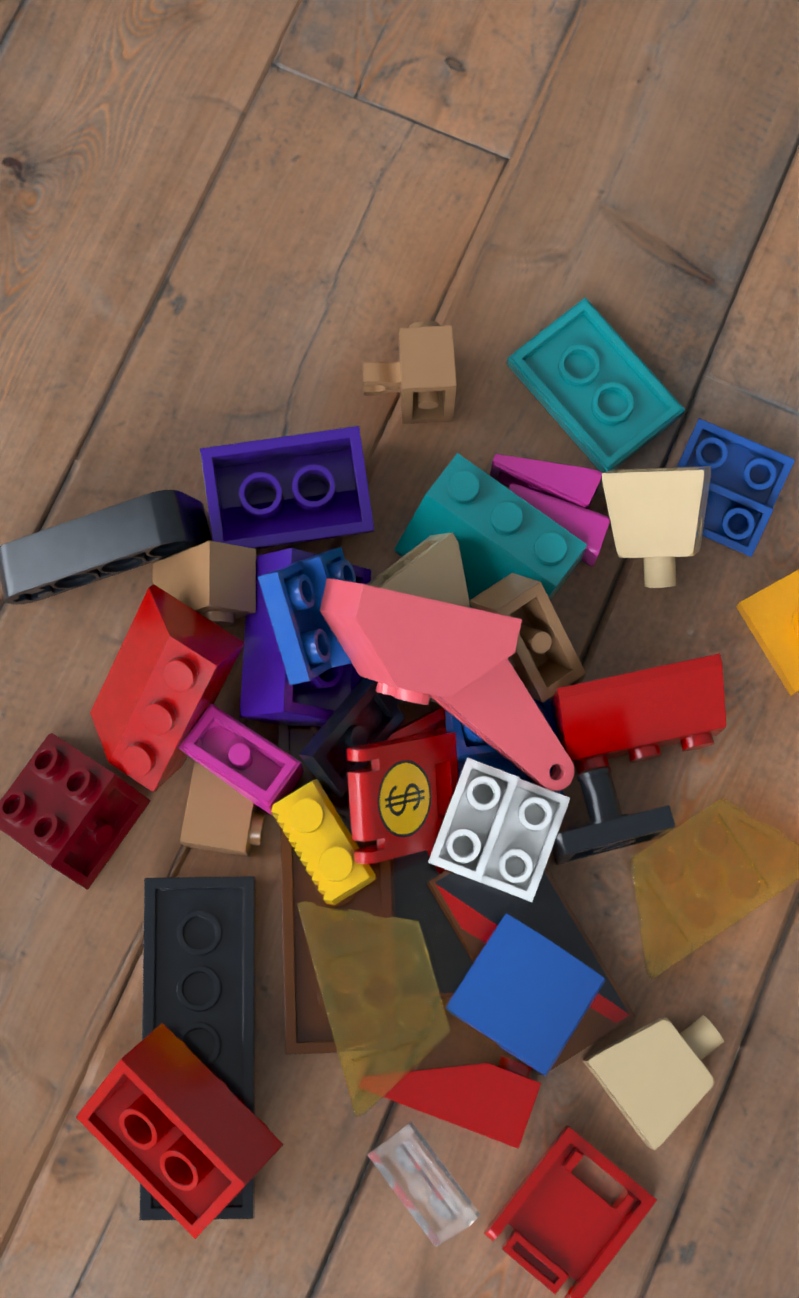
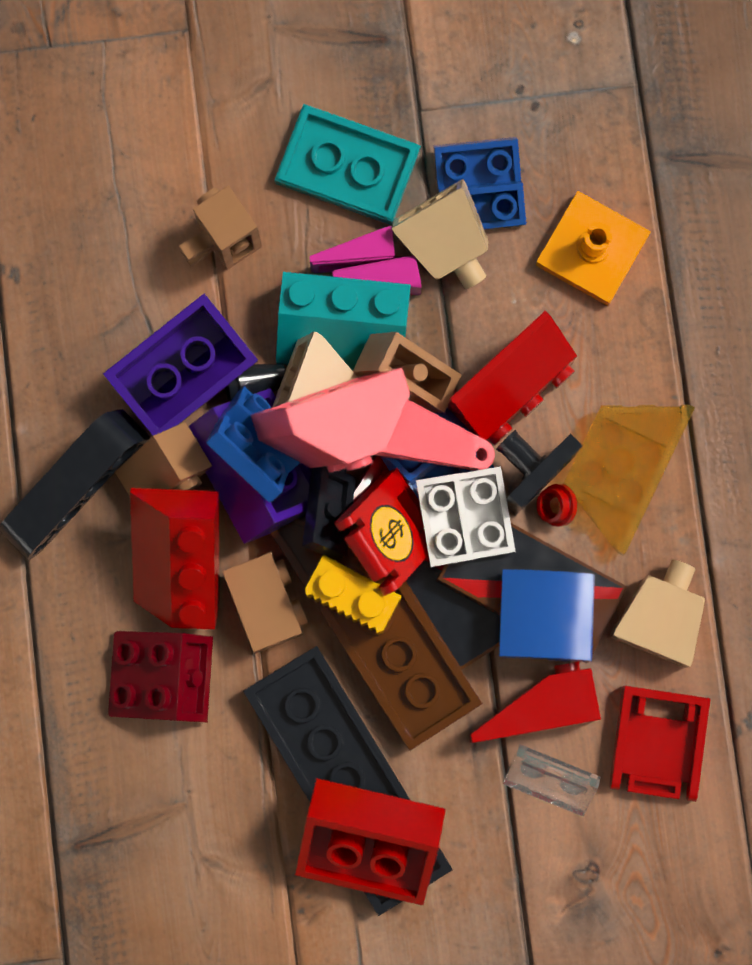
camera: 30 degrees left, 5 degrees up
(242, 758) = (263, 571): dark pink slope -> none
(364, 552) = (257, 379): none -> black cone
(375, 996) = (447, 675): clear yellow wing -> none
(609, 879) = (549, 508): none -> red plate

